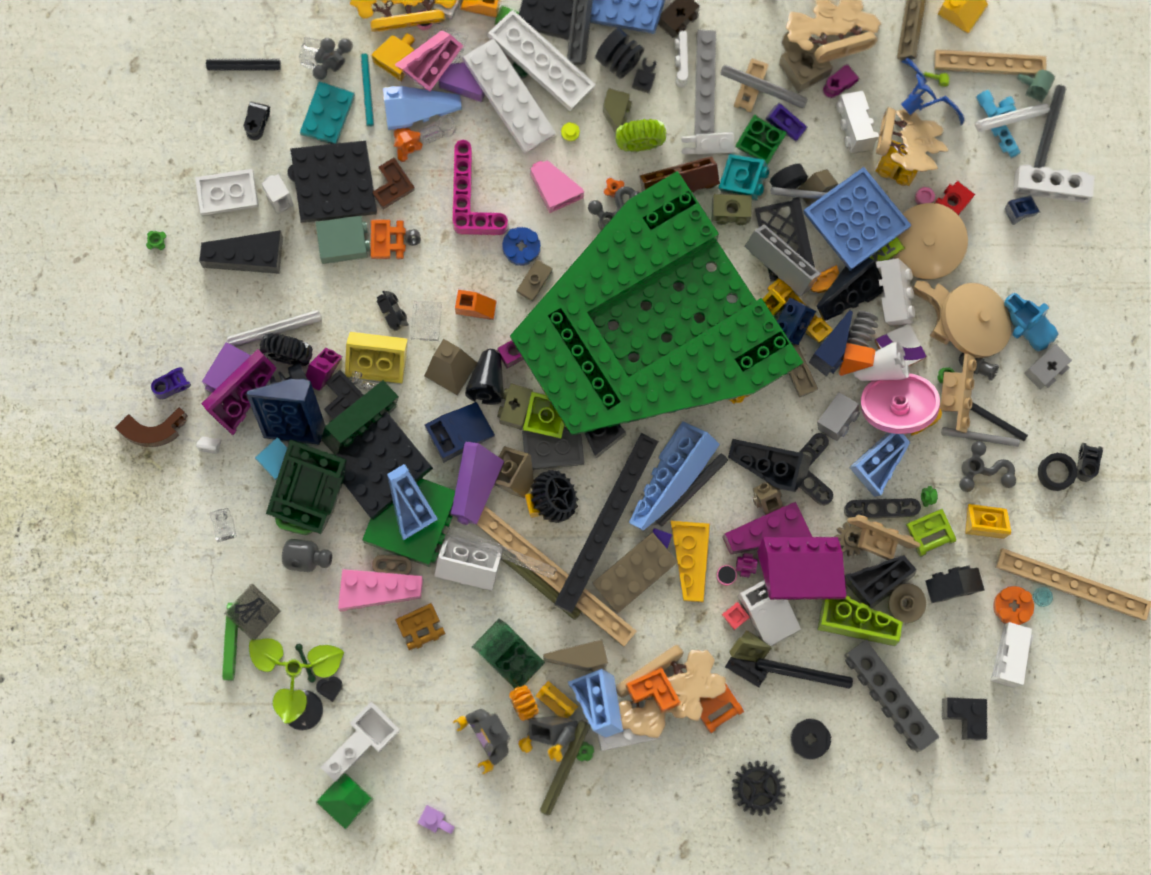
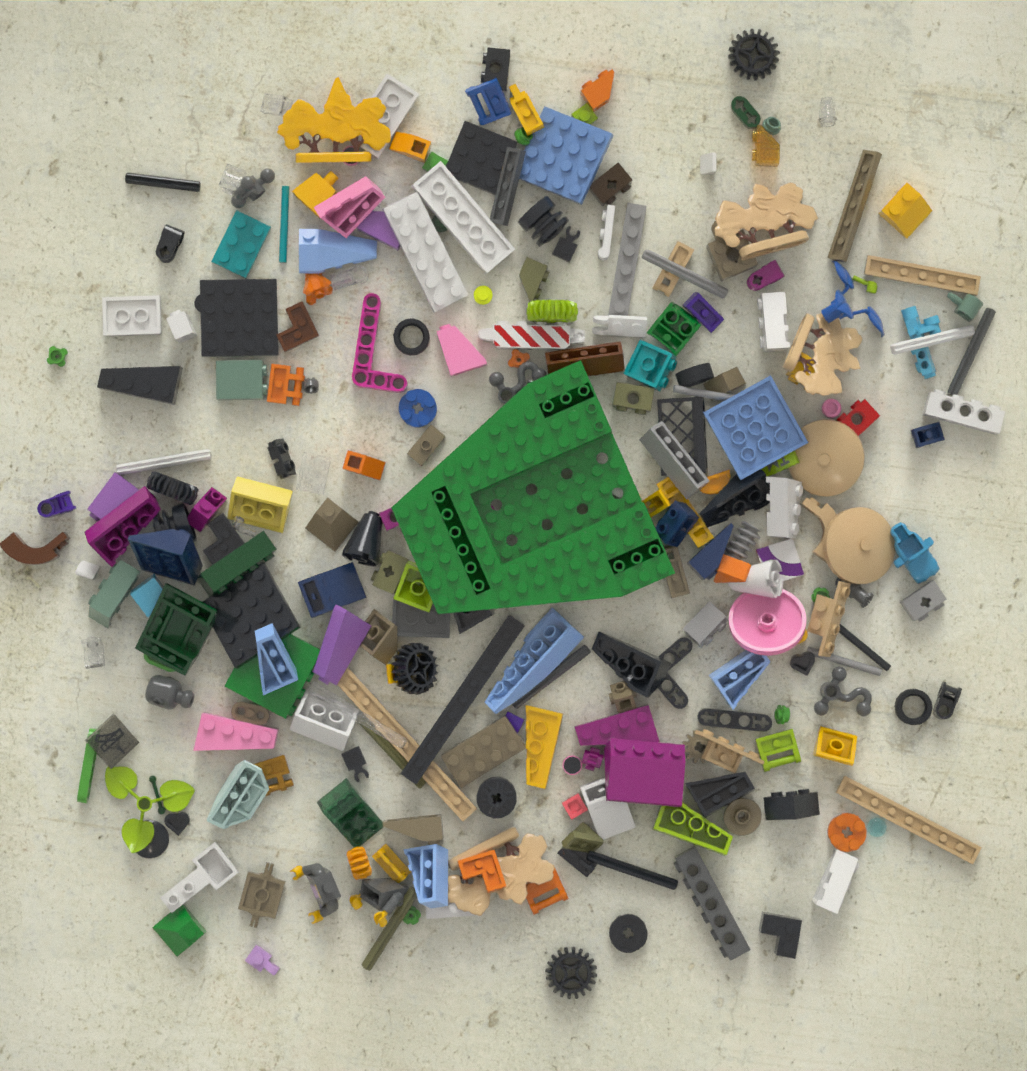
camera: 15 degrees right, 10 degrees up
(236, 462) = (112, 592): none -> sand green wedge
(391, 649) = (239, 796): none -> light aqua wedge
(426, 751) = (261, 895): none -> dark tan plate
(505, 599) = (354, 760): none -> black plate
(506, 164) = (411, 322): none -> black tyre
(622, 164) = (532, 336): none -> white hinge
(644, 619) = (493, 786): none -> black wheel
(941, 442) = (803, 663): none -> black tile

